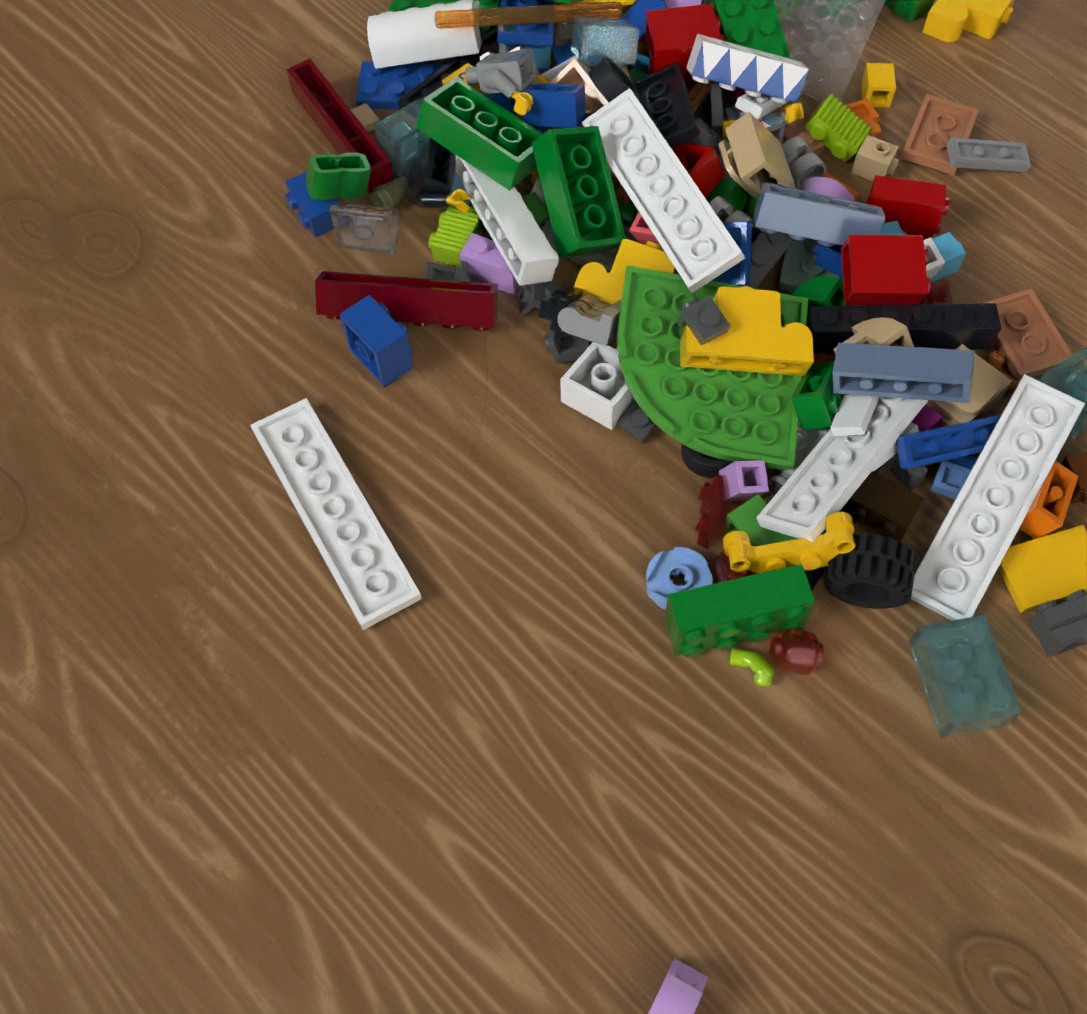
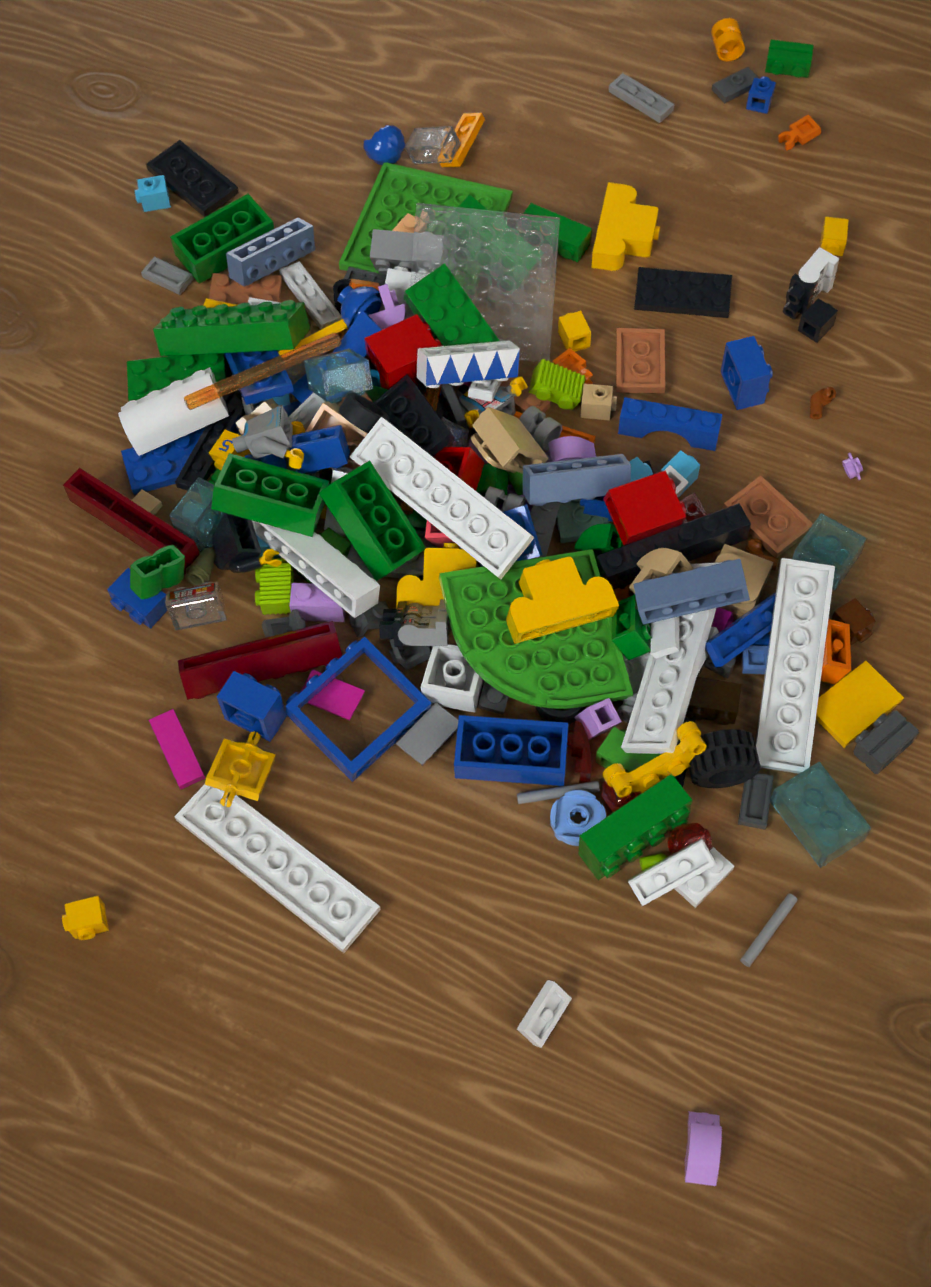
camera: 20 degrees left, 0 degrees up
(115, 494) = (85, 918): none -> yellow brick
(285, 361) = (176, 749): none -> dark pink tile
(337, 401) = (240, 769): none -> yellow plate
(466, 360) = (336, 697): none -> dark pink piece
(502, 424) = (387, 739): none -> blue window
(551, 779) = (544, 1013): none -> white plate
(552, 434) = (428, 734): none -> light grey piece
(633, 480) = (511, 750): none -> blue brick
(665, 544) = (557, 792): none -> light grey bar
(703, 319) = (522, 601): dark grey bracket -> none
(762, 676) = (672, 872): none -> white tile
(798, 697) = (702, 885): none -> white plate
(852, 785) = (768, 930): none -> light grey bar
(892, 635) = (756, 801): none -> dark grey tile
(911, 203) = (641, 438): red brick -> none
(977, 215) = (694, 425): none -> blue arch
(988, 154) = (685, 367): light grey tile -> none
(1014, 82) = (683, 292): none -> black plate
(1055, 176) = (746, 372): none -> blue brick

